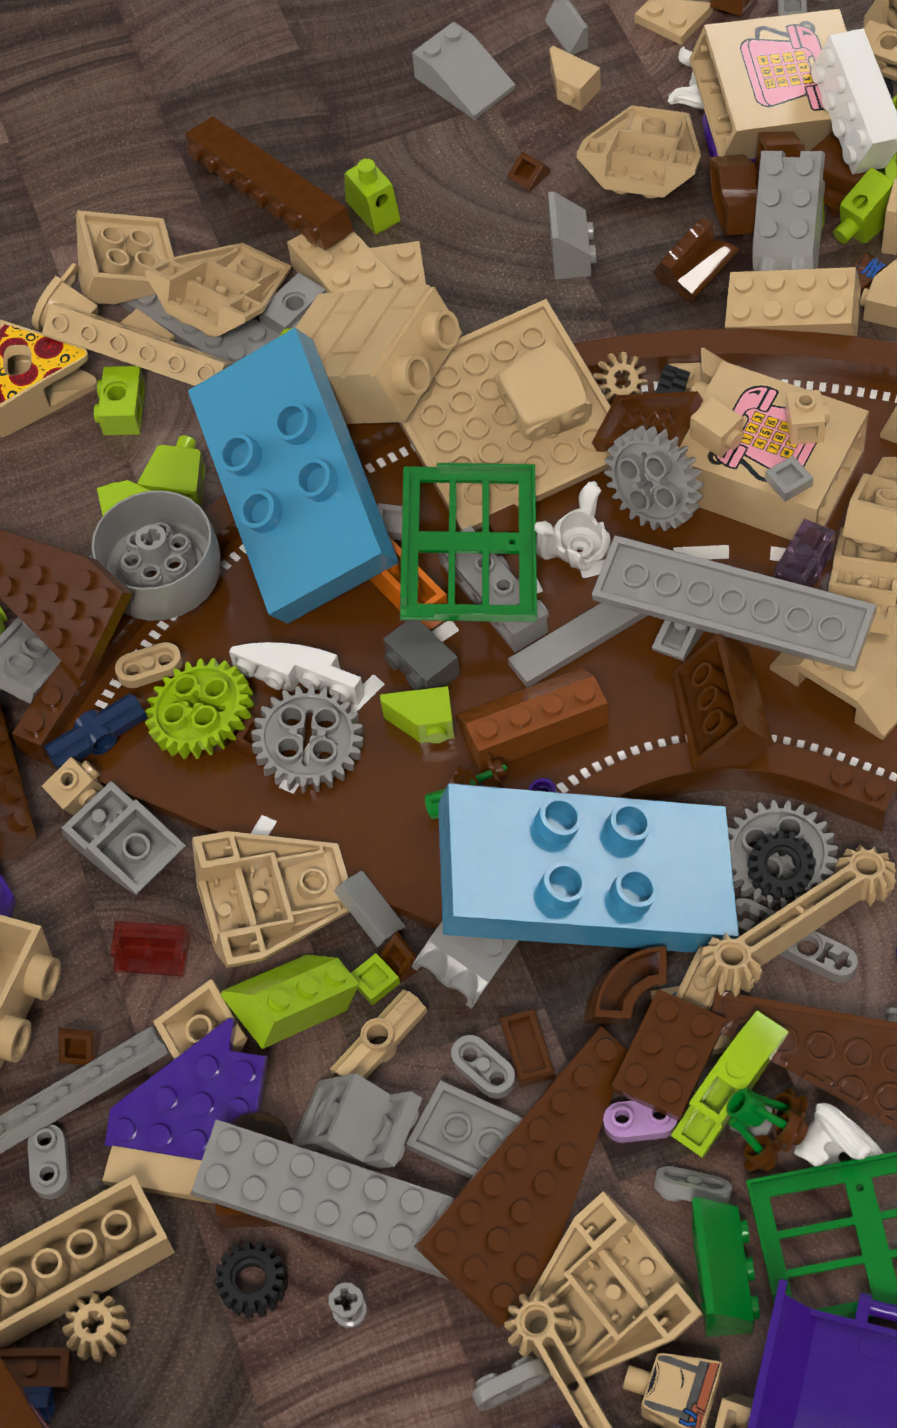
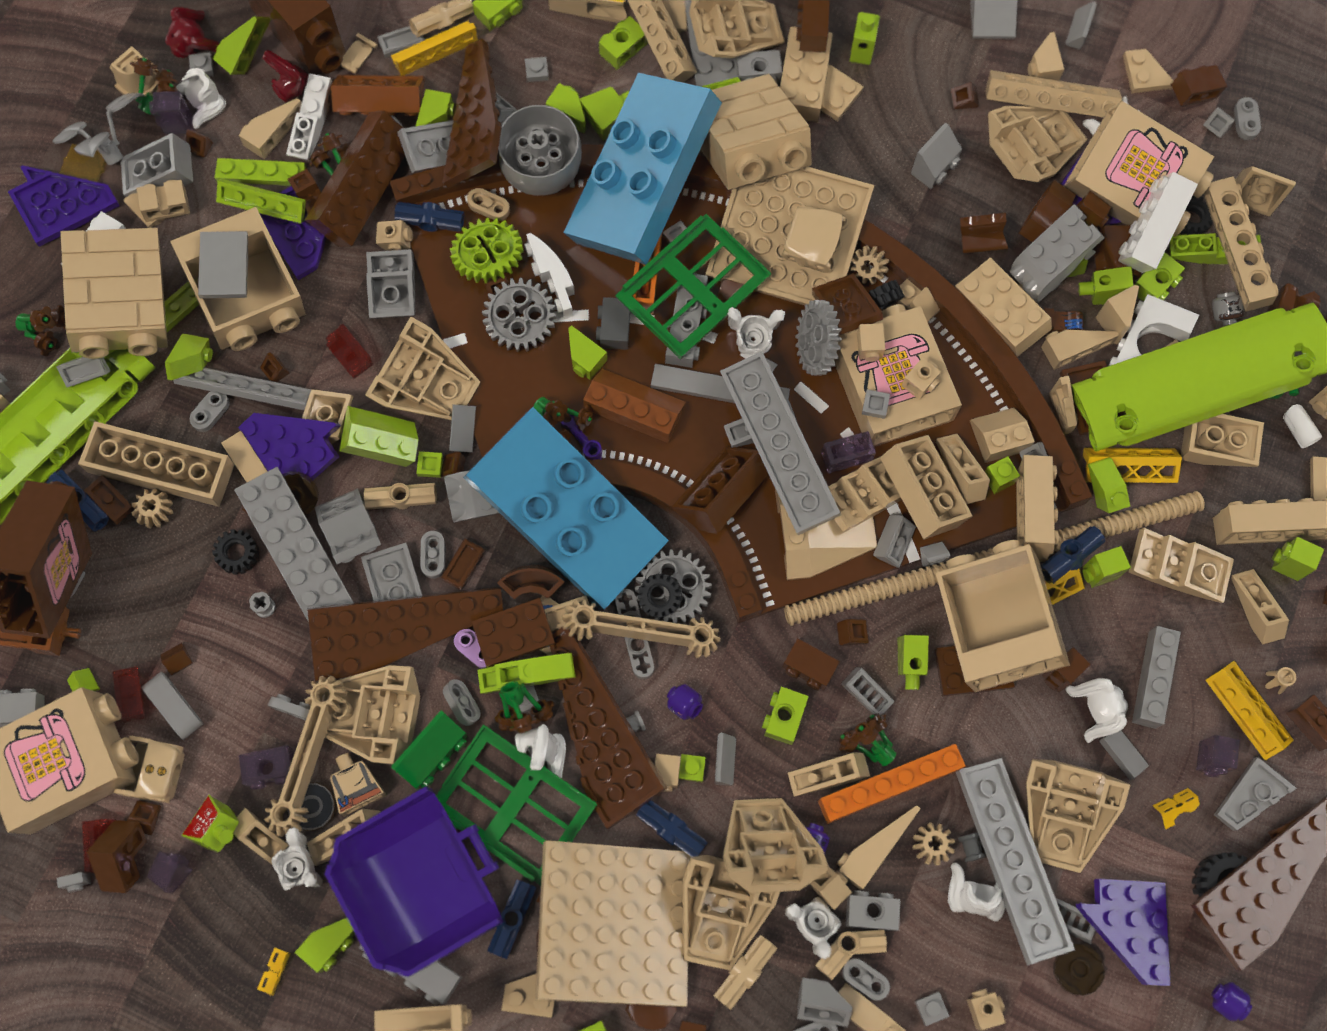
camera: 35 degrees right, 15 degrees up
(51, 502) = (536, 69): none -> light grey plate
(612, 98) = (1051, 94): none -> tan brick

